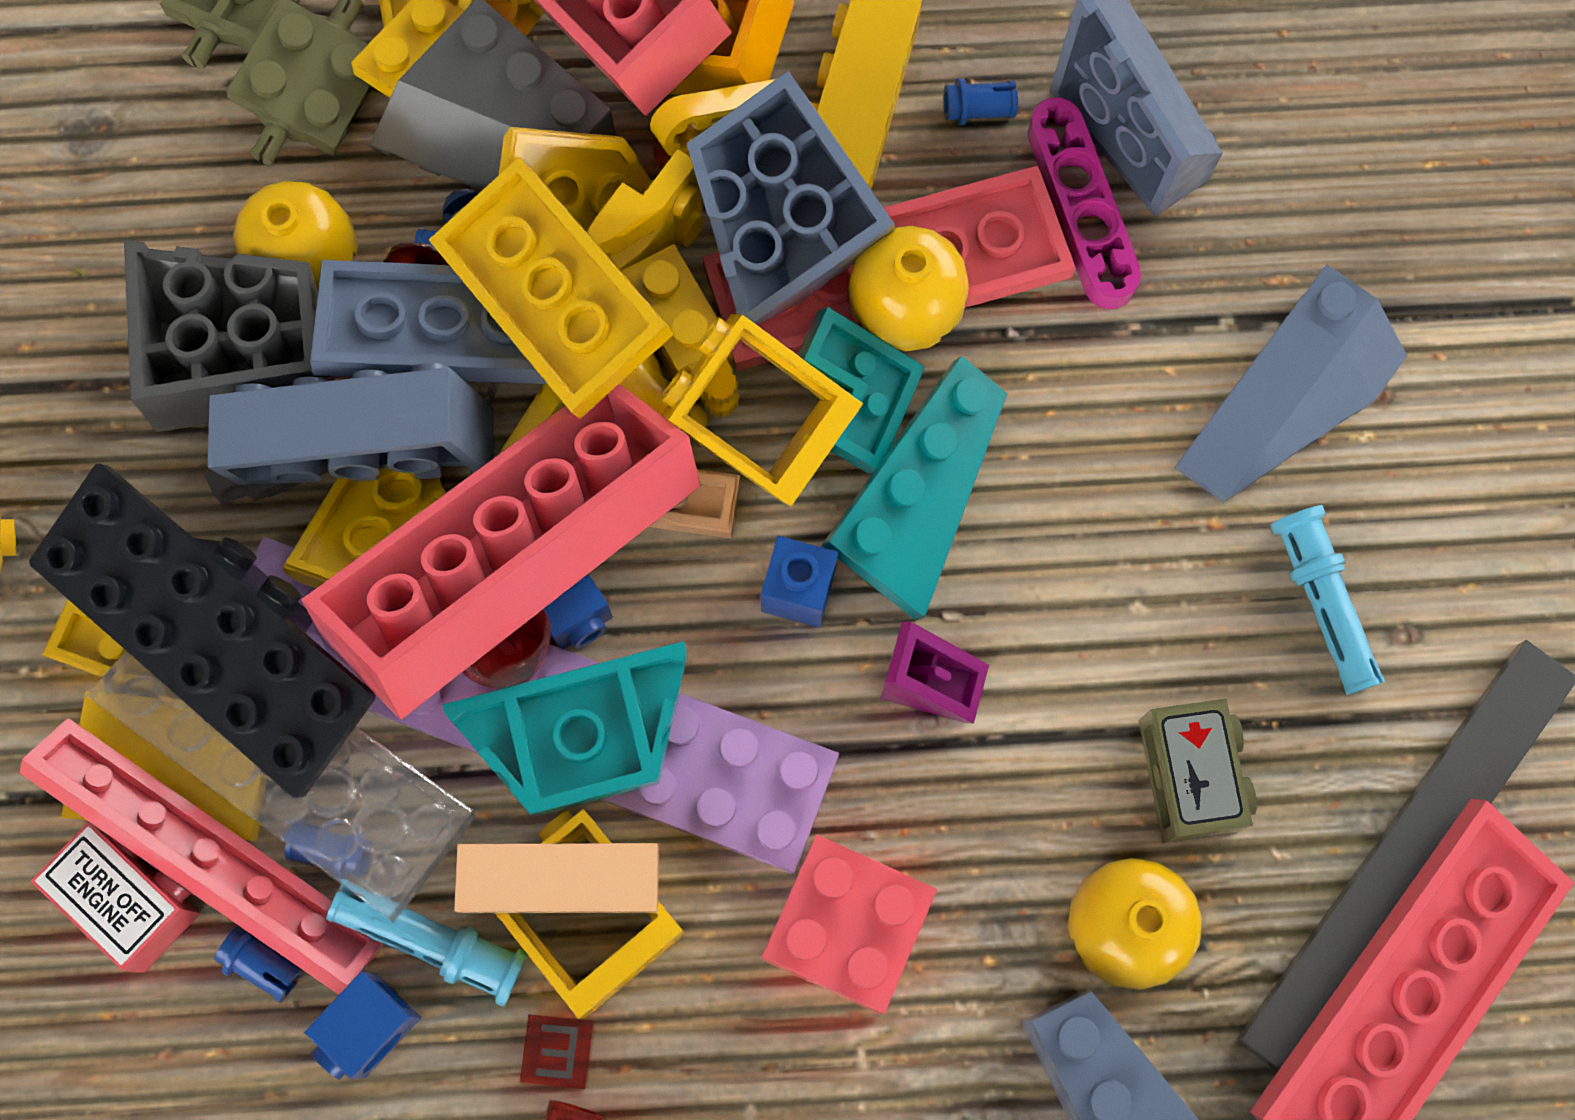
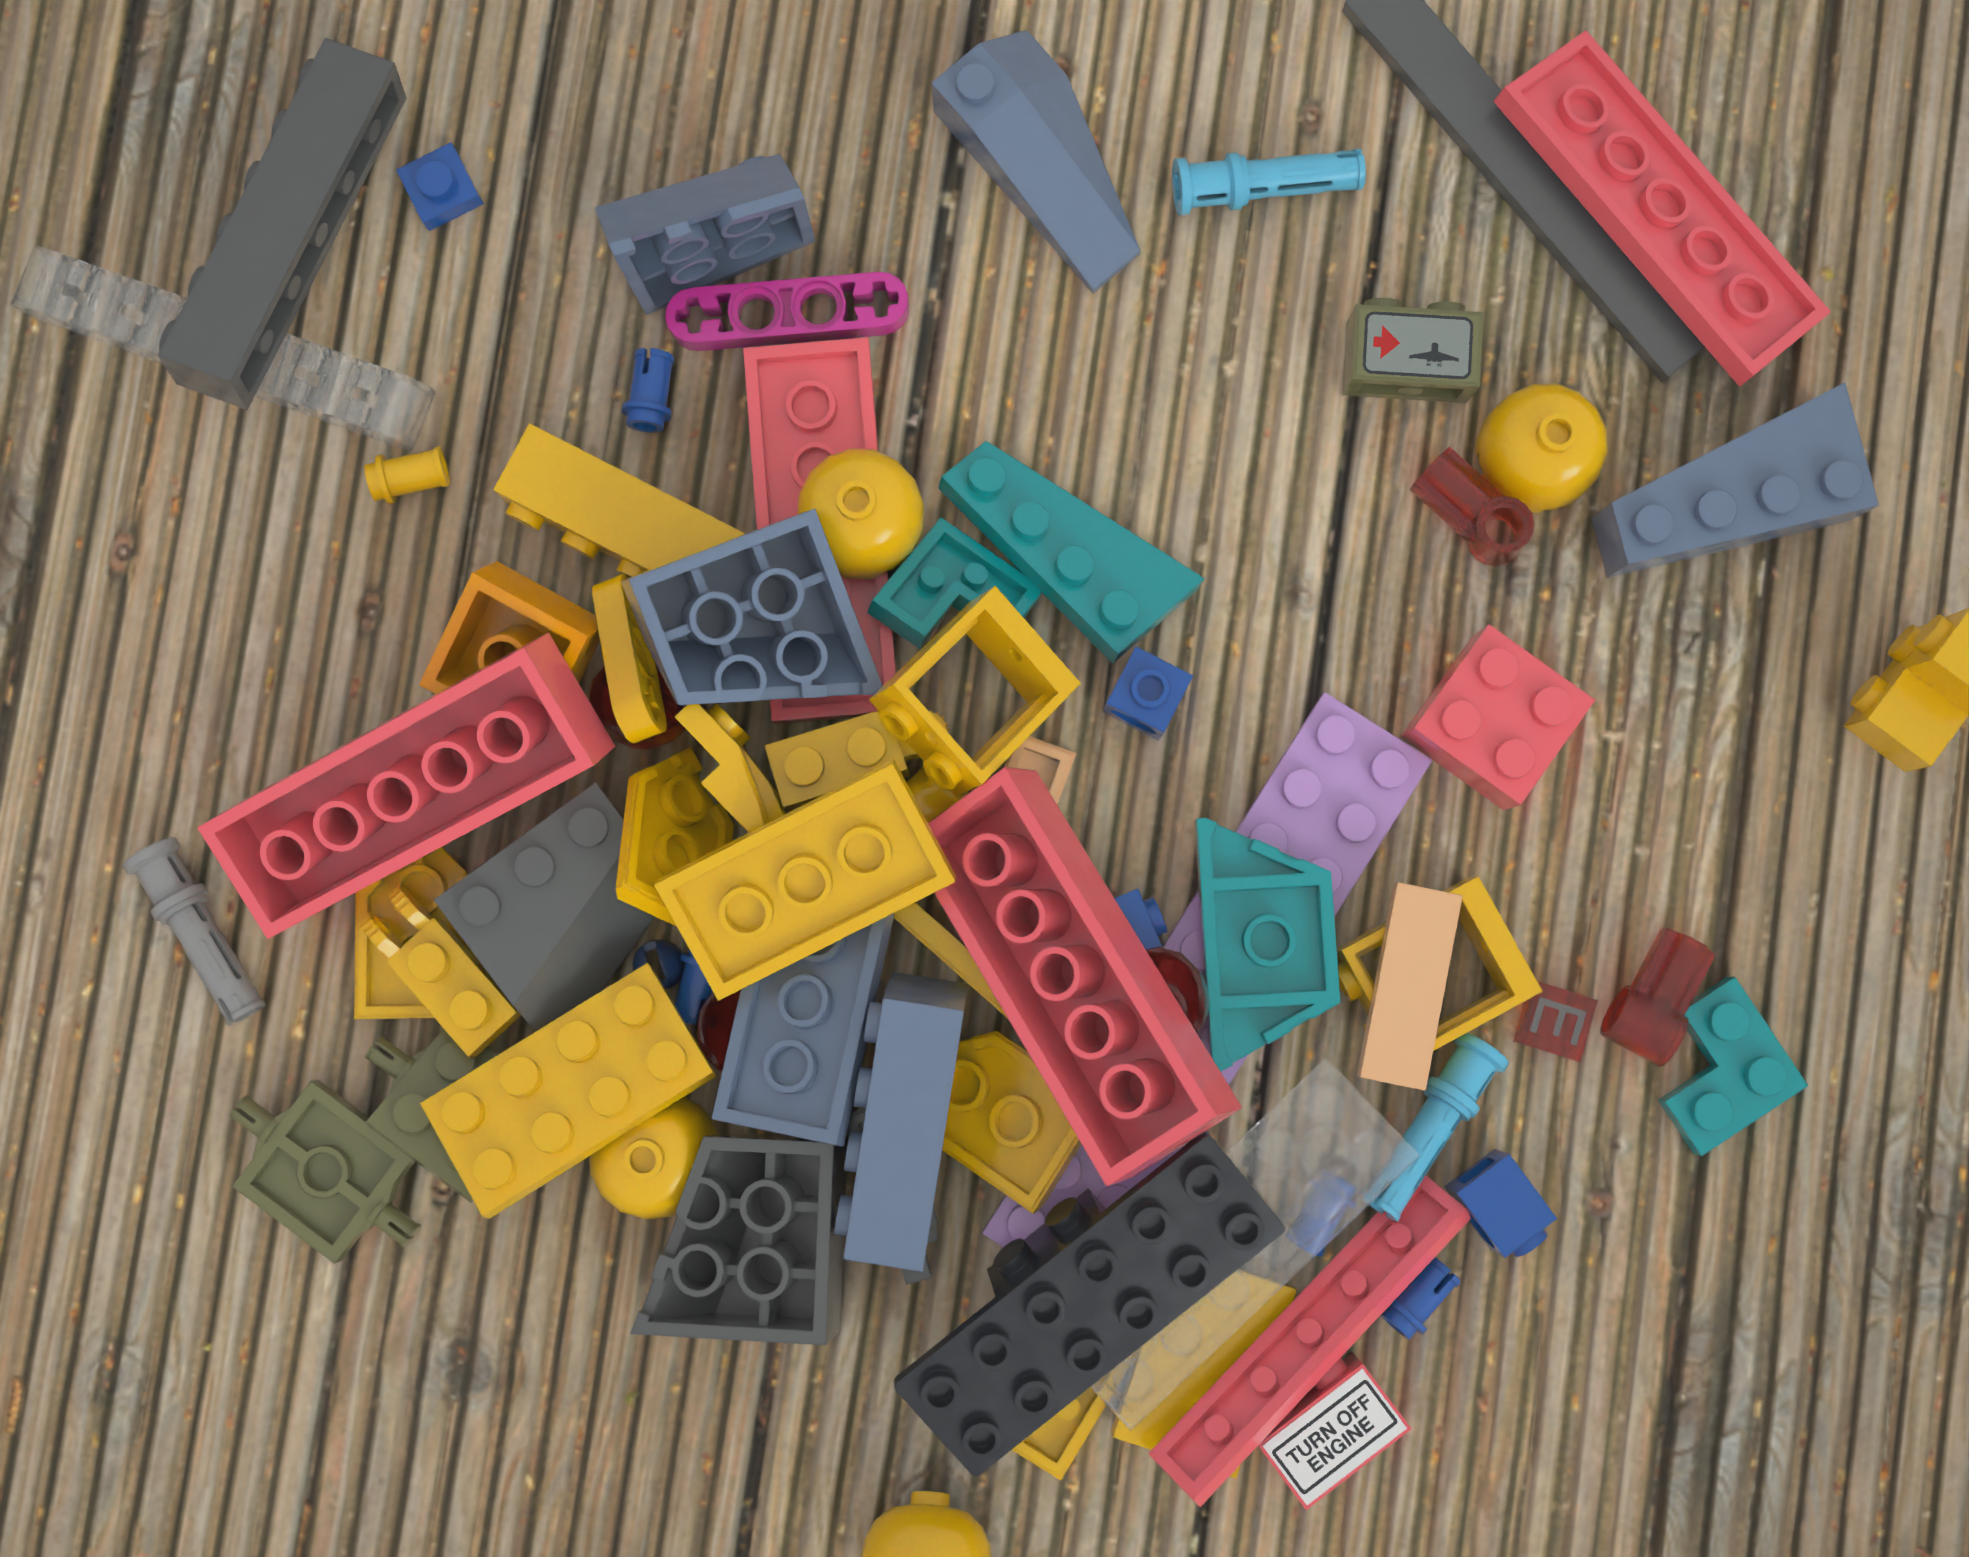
camera: 70 degrees left, 10 degrees up
(333, 145) = (567, 1090): none -> yellow plate
(934, 675) = (1266, 584): magenta slope -> none
(1057, 859) = (1467, 502): none -> clear red piece

